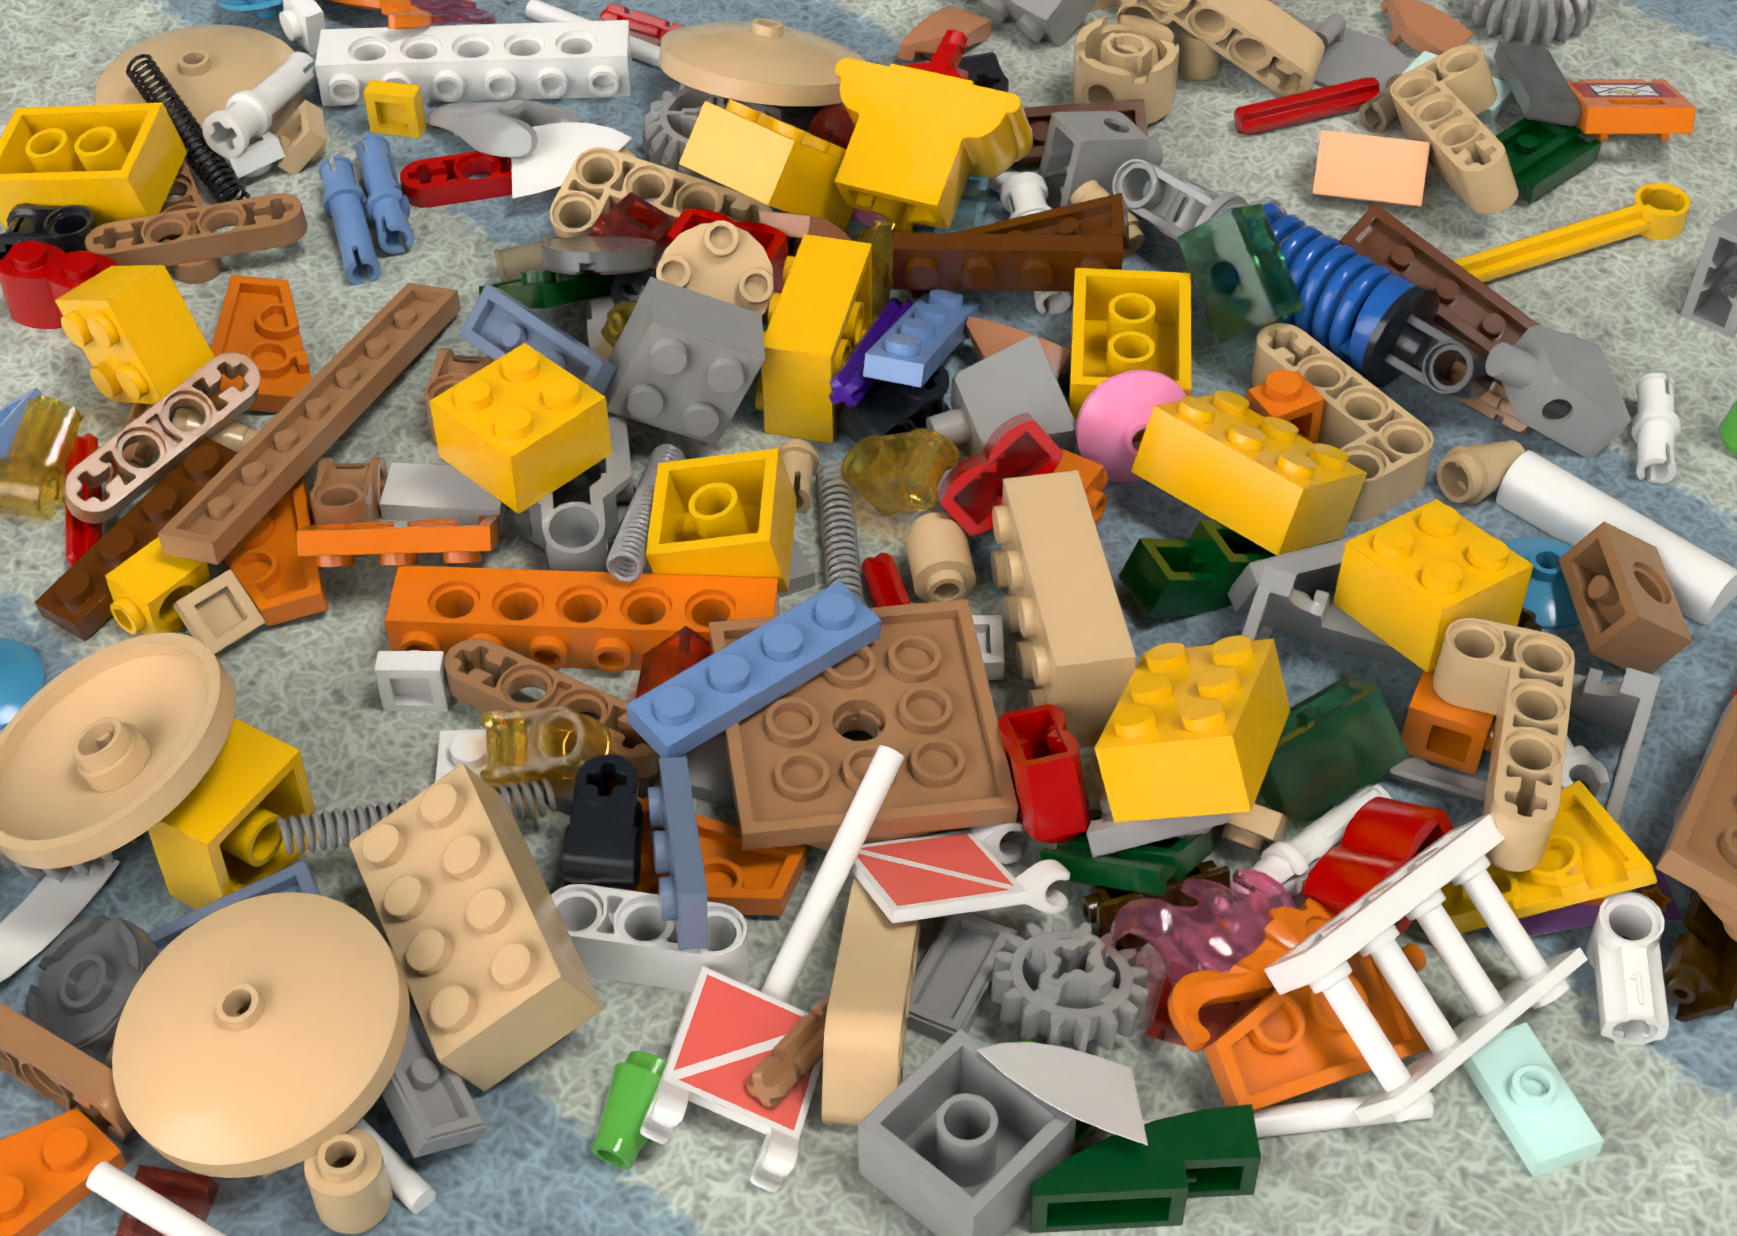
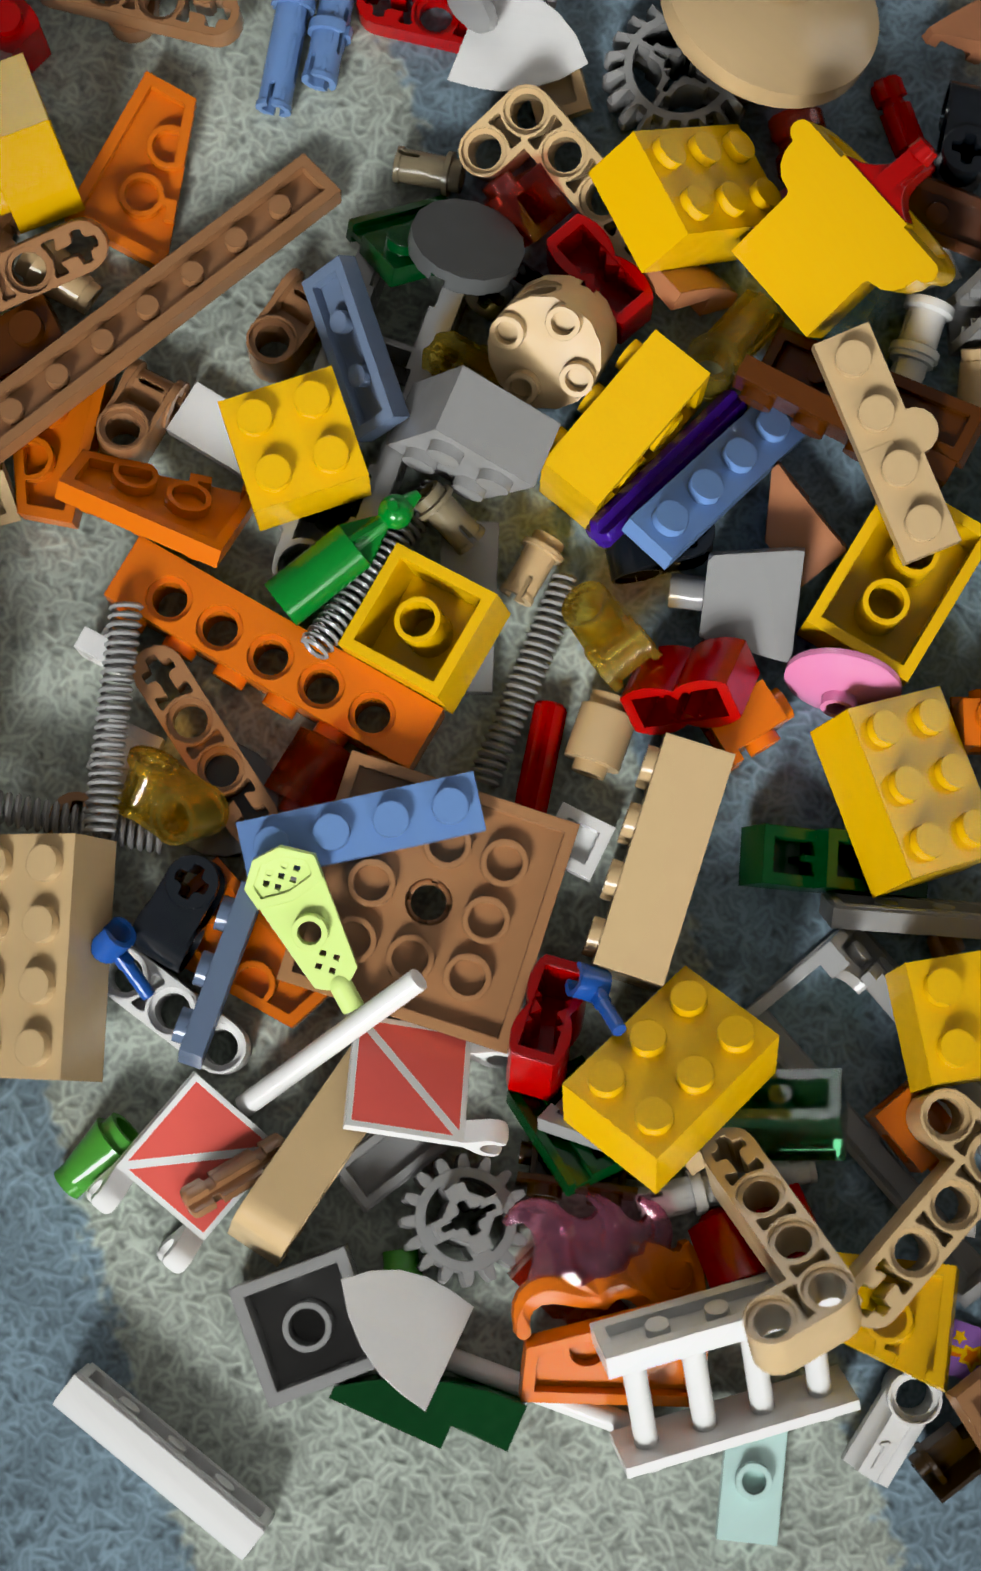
camera: 25 degrees right, 35 degrees up
(443, 678) = (96, 770): none -> light grey piece
(550, 867) = (112, 947): none -> blue hand
(605, 497) = (338, 558): none -> green wheel
(683, 443) = (447, 516): none -> dark tan pin
(726, 743) = (302, 902): none -> yellowish green piece
(1057, 238) = (888, 443): none -> tan hinge
(1073, 693) = (595, 987): none -> blue hand
(1447, 796) = (772, 1237): none -> tan beam

